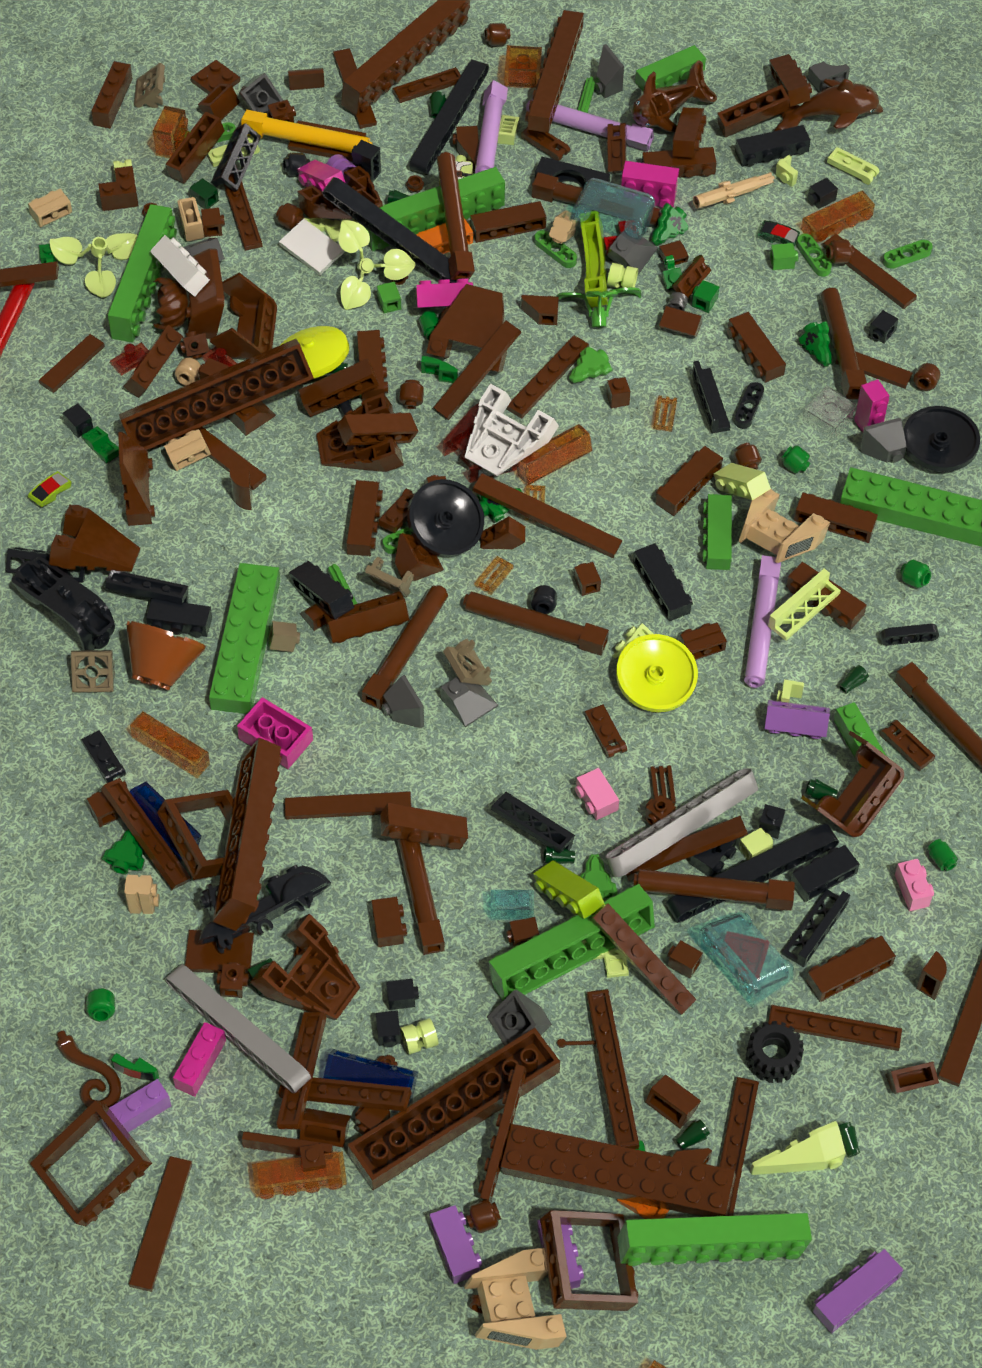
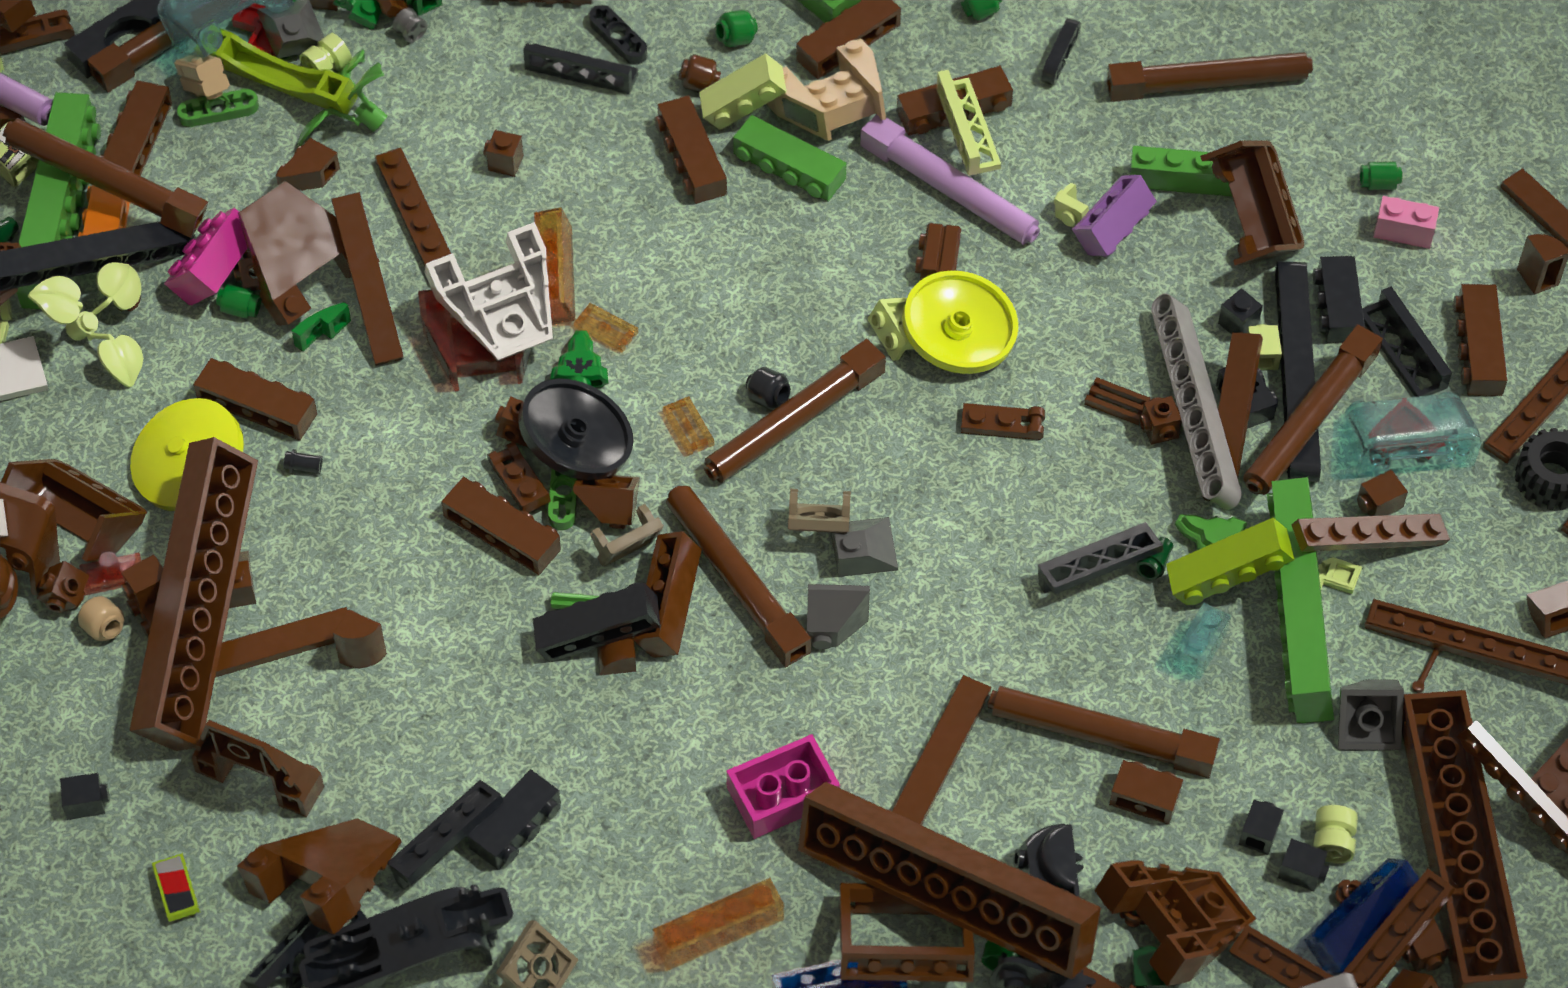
camera: 60 degrees left, 0 degrees up
(101, 445) = (140, 788): green slope -> none
(129, 359) = (18, 682): clear red tile -> none
(153, 361) = (53, 652): reddish brown brick -> none
(158, 655) = (577, 864): dark orange cone -> none
(187, 449) = (239, 680): tan brick -> none
(245, 638) = (604, 754): bright green brick -> none
(283, 636) = (633, 706): dark tan brick -> none
(338, 387) = (277, 445): reddish brown brick -> none
(372, 457) = (365, 482): reddish brown wedge -> none
(376, 428) = (379, 435): reddish brown brick -> none
(389, 297) = (156, 325): bright green brick -> none
(411, 394) = (338, 376): reddish brown head -> none
(424, 826) = (1041, 678): reddish brown brick -> none
(503, 535) = (639, 383): reddish brown slope -> none
(522, 931) = (1248, 648): reddish brown brick -> none
(547, 515) = (642, 320): reddish brown tile -> none
(587, 578) = (765, 326): reddish brown brick -> none
(590, 364) = (436, 160): bright green rock -> none
(597, 794) = (1096, 471): bright pink brick -> none
(662, 582) = (824, 252): black brick -> none
(667, 401) = (570, 121): clear orange tile -> none
(681, 321) = (441, 35): reddish brown brick -> none
(817, 789) = (1220, 248): dark green cone -> none
(854, 678) = (1088, 134): dark green cone -> none
(907, 745) = (1210, 131): reddish brown plate -> none

